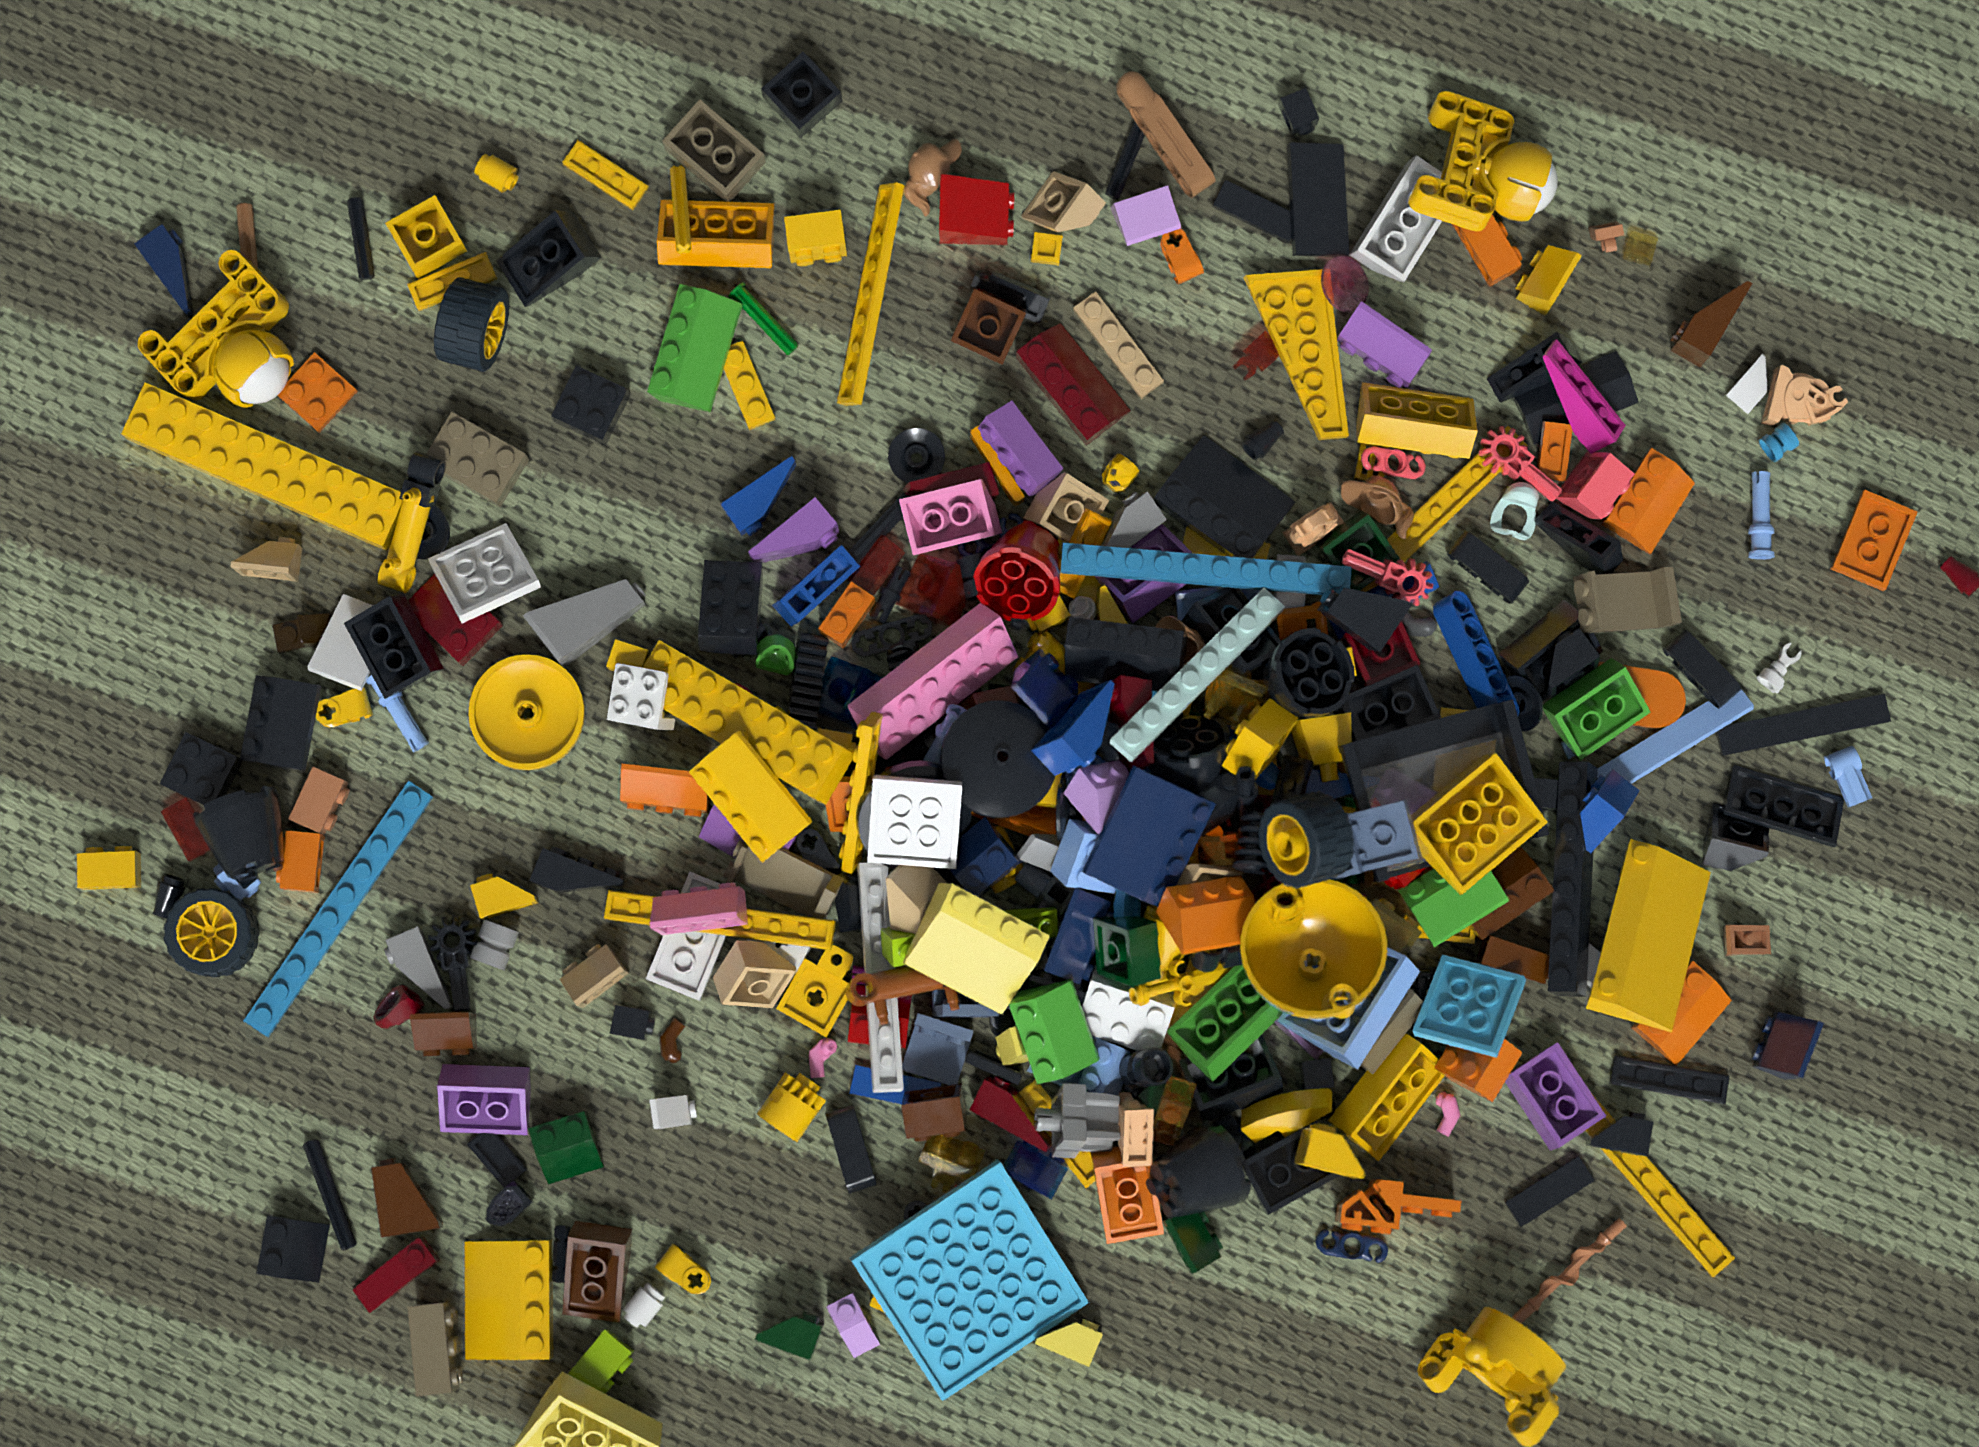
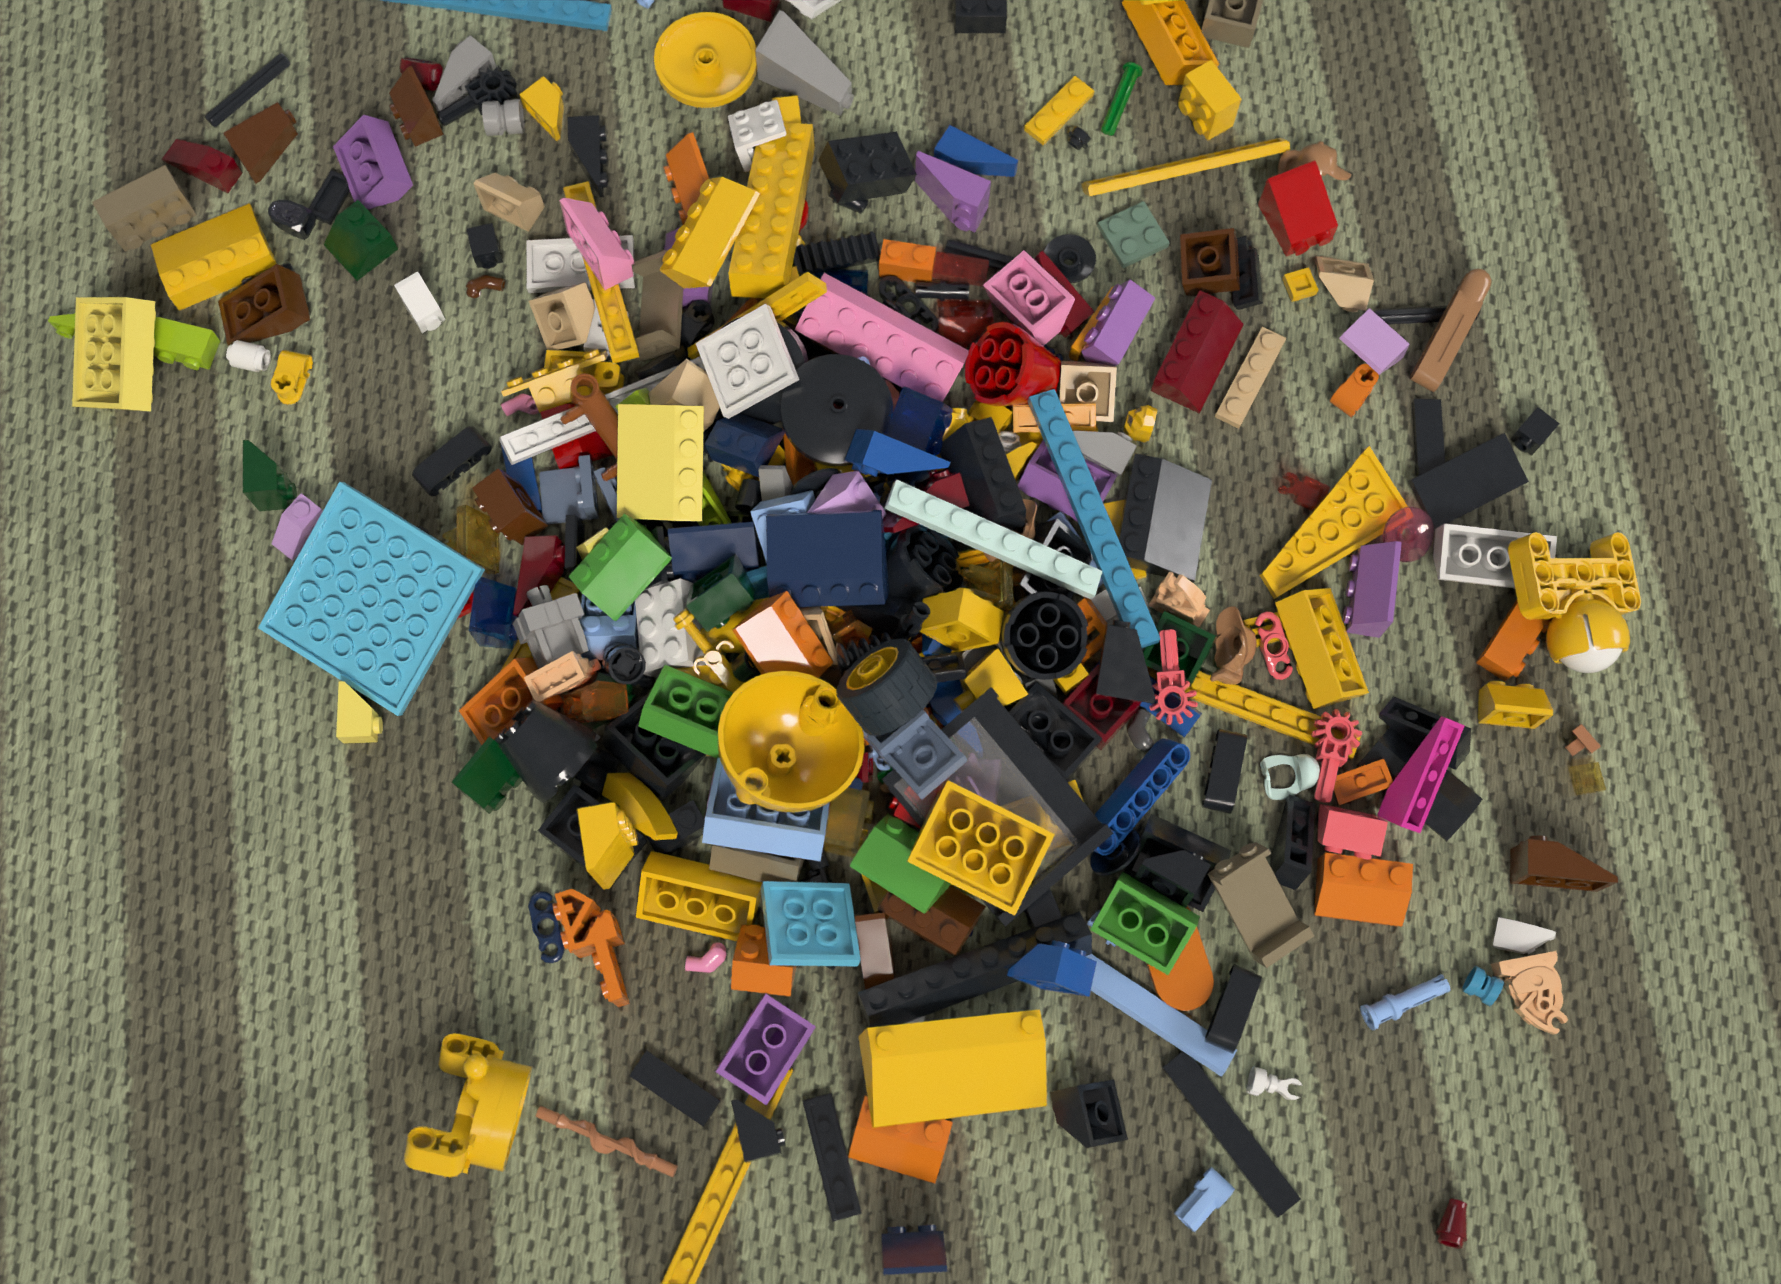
camera: 65 degrees right, 10 degrees down
(293, 1249) = (189, 78): black slope -> none
(694, 348) = (1067, 53): bright green slope -> none
(775, 654) = (846, 220): bright green piece -> none
(788, 382) = (1078, 138): none -> black plate
(792, 1105) = (466, 395): yellow gear -> none
(801, 94) = (1319, 44): black brick -> none
(816, 586) = (919, 226): blue slope -> none
(823, 1011) = (553, 386): none -> yellow bracket
(916, 380) = (1133, 234): none -> sand green plate
(1262, 440) = (1234, 528): black cone -> none
(1746, 940) = (998, 1169): nougat slope -> none
(1783, 806) = (1144, 1148): black slope -> none
(1874, 540) = (1441, 1120): orange plate -> none

